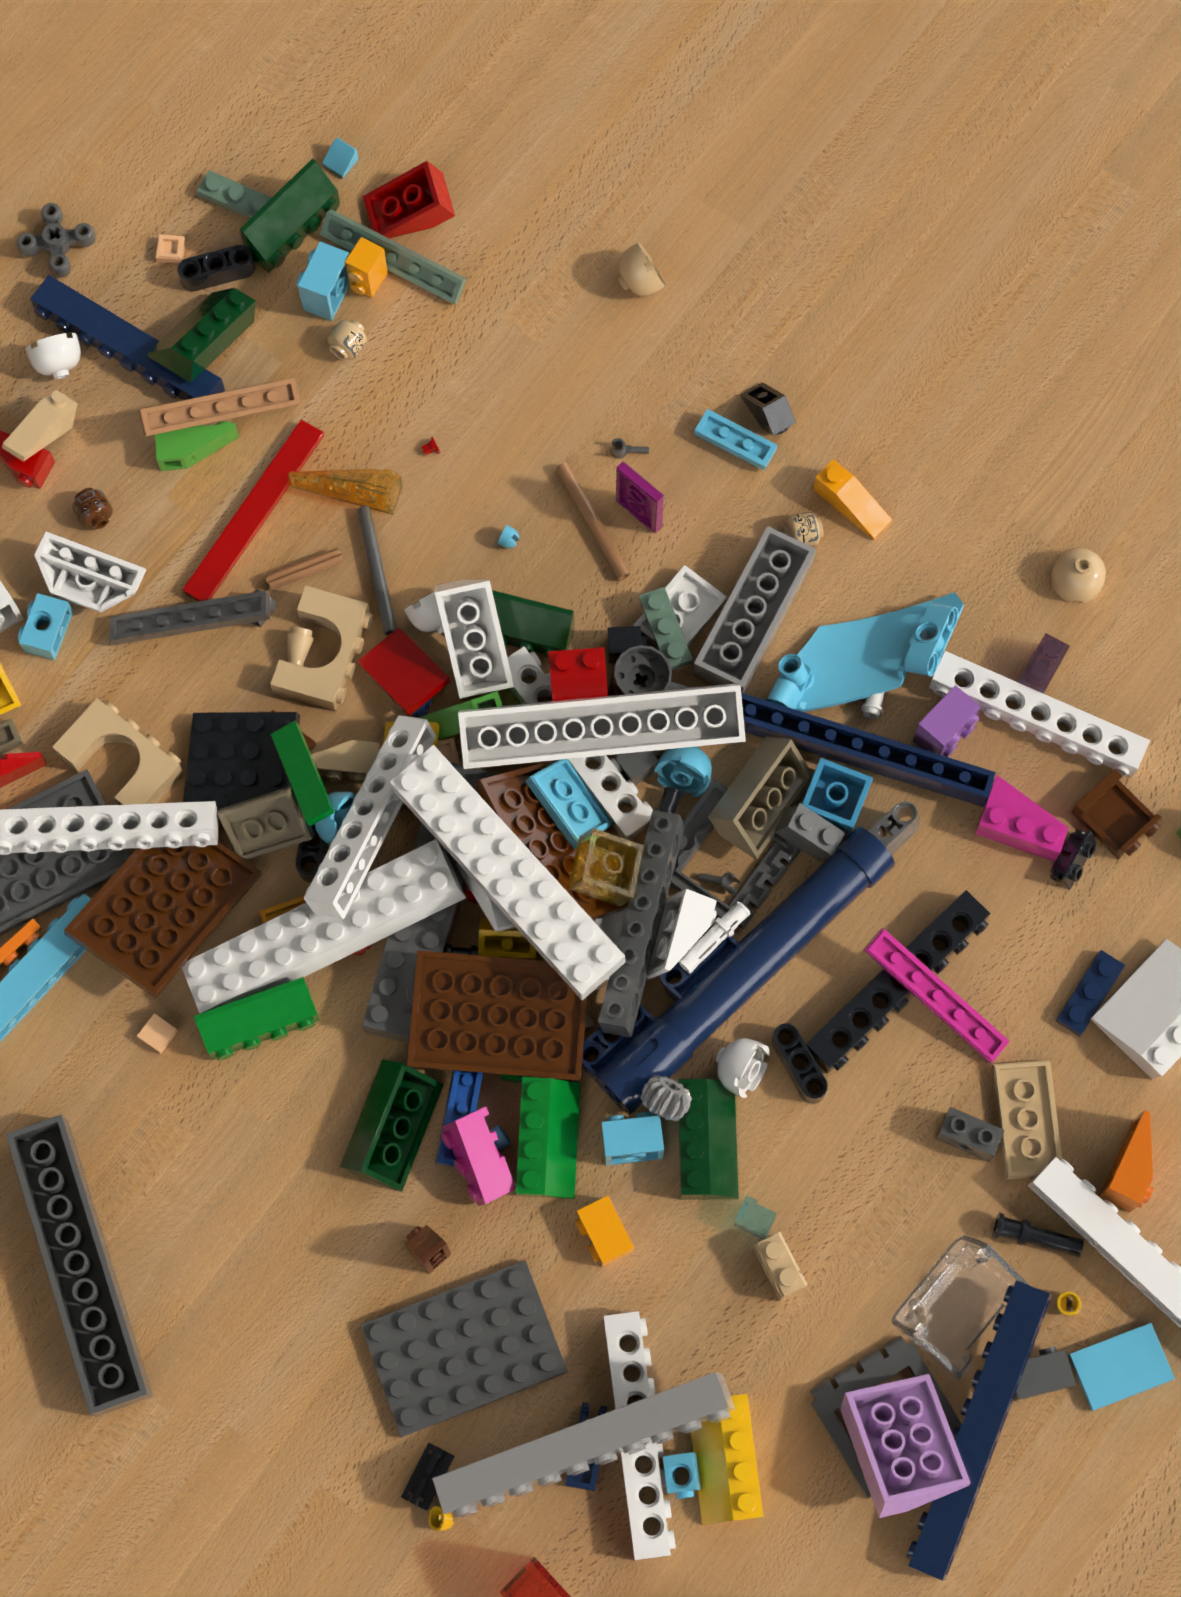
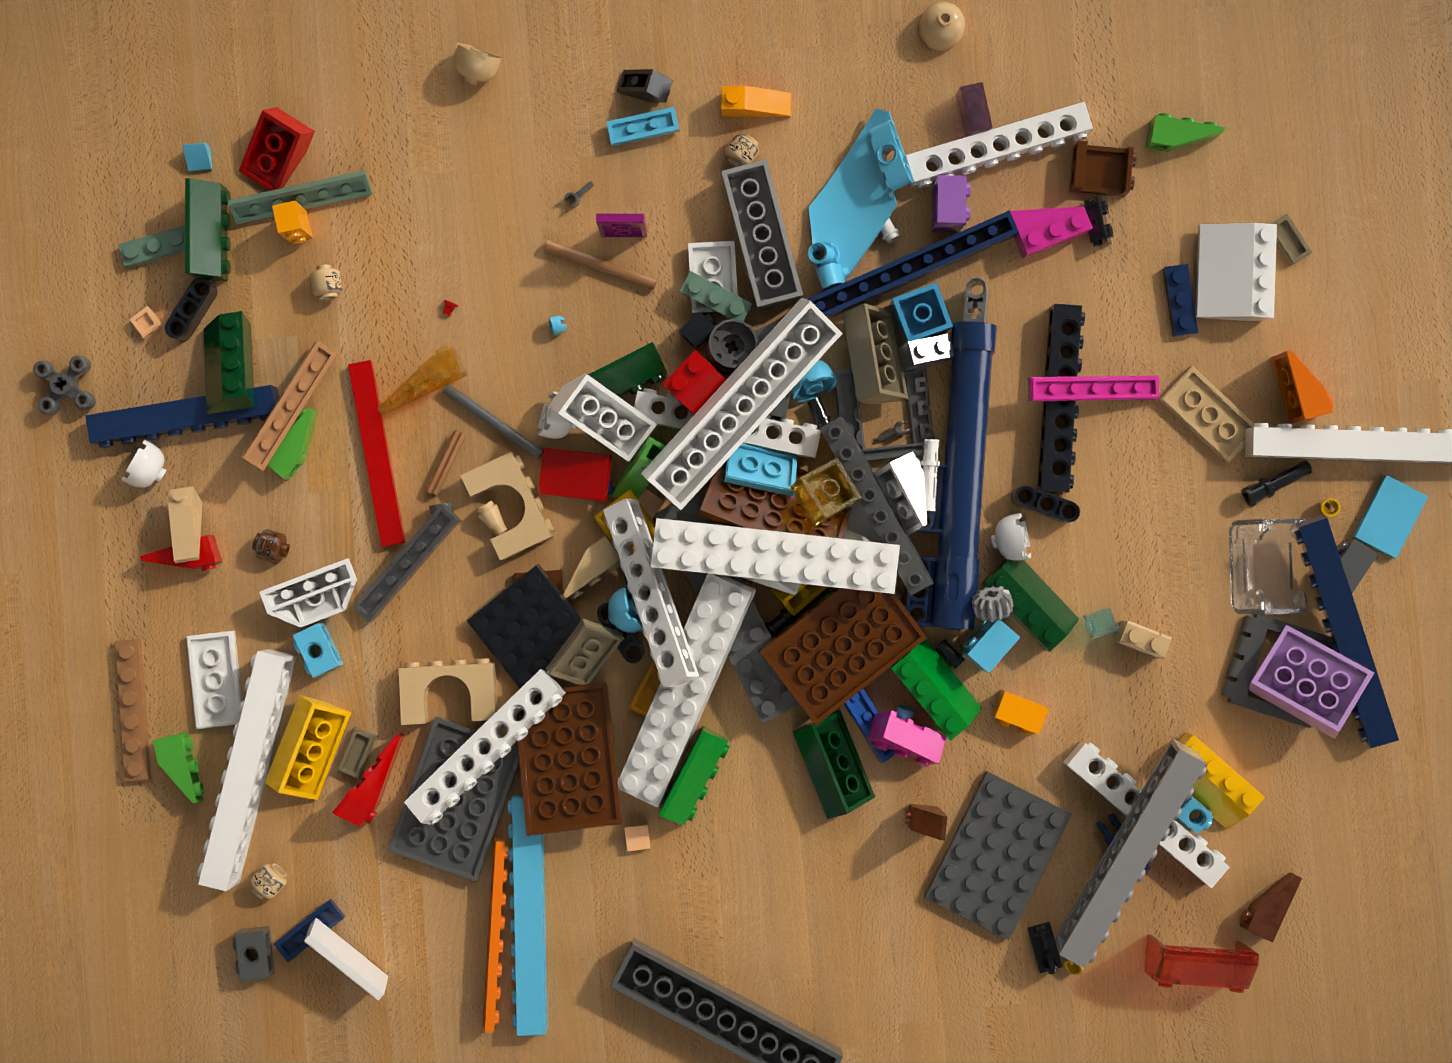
camera: 45 degrees left, 15 degrees up
(302, 773) = (581, 604): green tile -> none
(324, 281) = (273, 256): medium azure brick -> none
(589, 1122) = (950, 654): none -> black pin
(970, 1134) = (1185, 456): dark grey brick -> none

